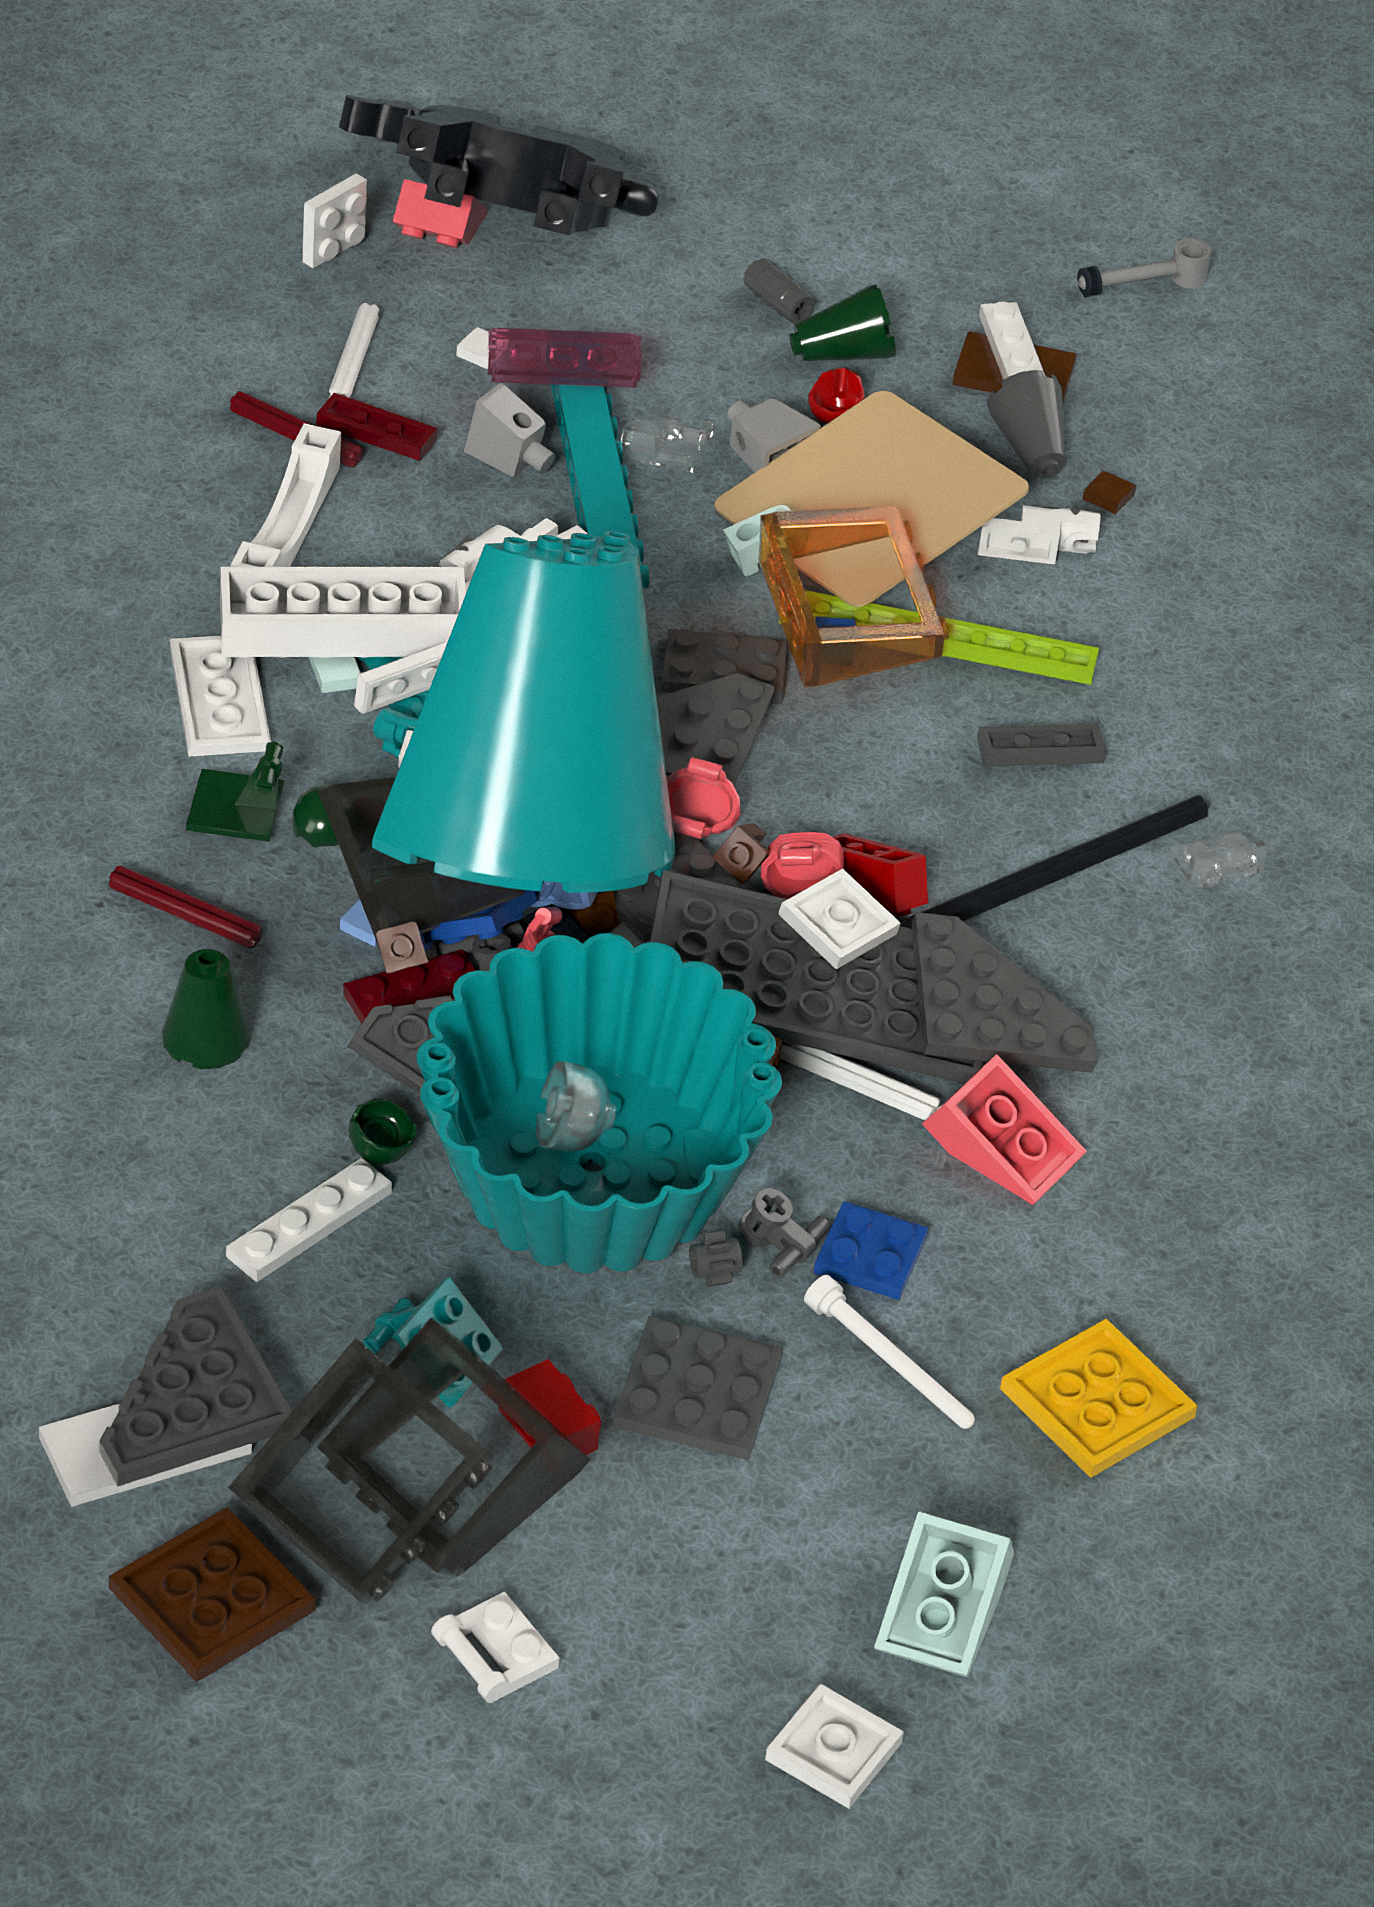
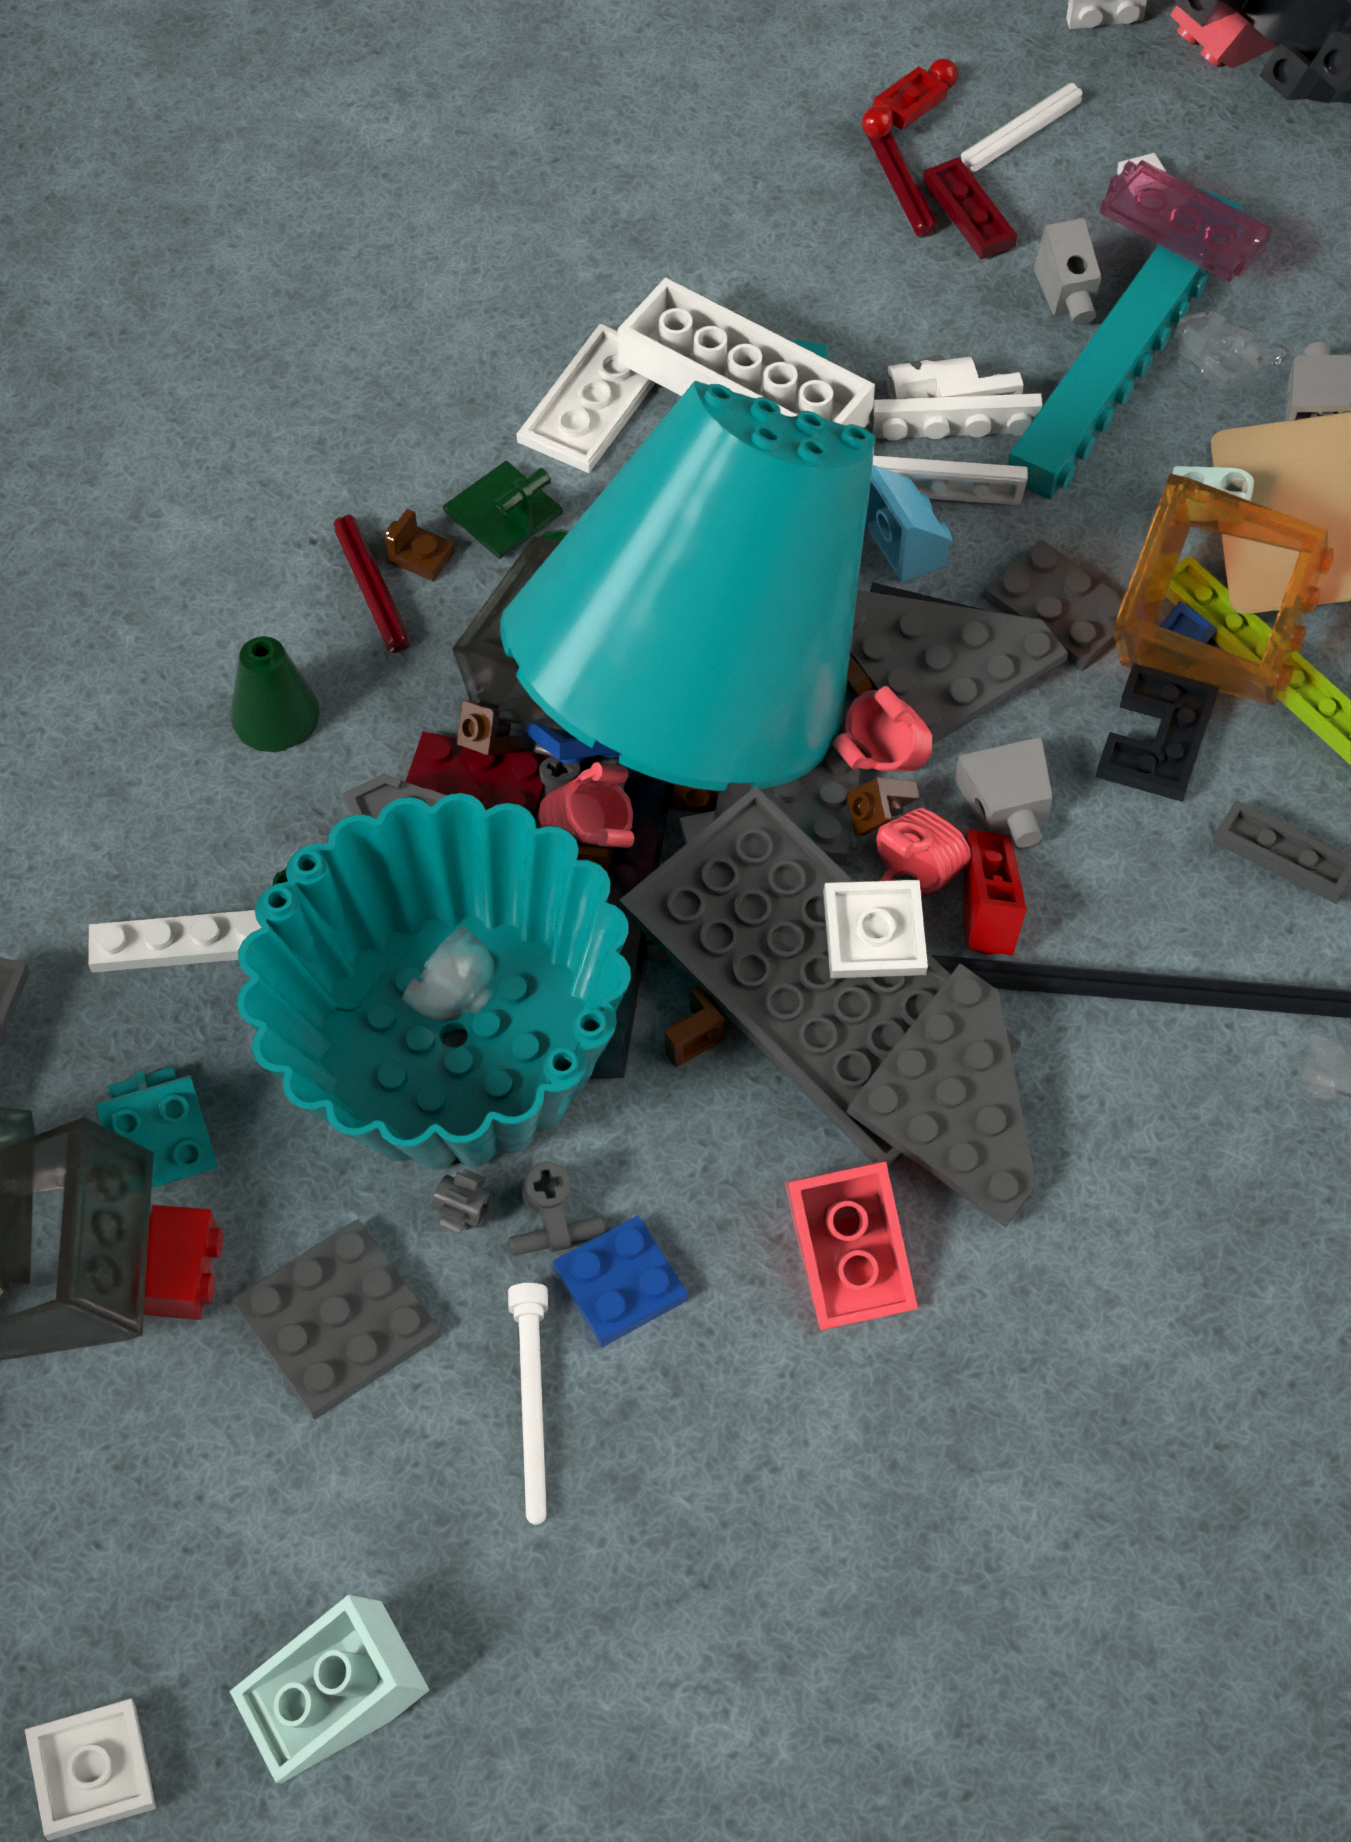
camera: 45 degrees right, 15 degrees up
(197, 865) = (417, 548): none -> reddish brown bracket
(249, 367) = (909, 98): none -> red plate
(301, 494) = (863, 223): white arch -> none
(817, 799) = (1008, 788): none -> light grey torso
(861, 1079) = (783, 1107): white axle -> none
(903, 725) = (1170, 761): none -> black plate
(1098, 1397) = (671, 1580): yellow plate -> none

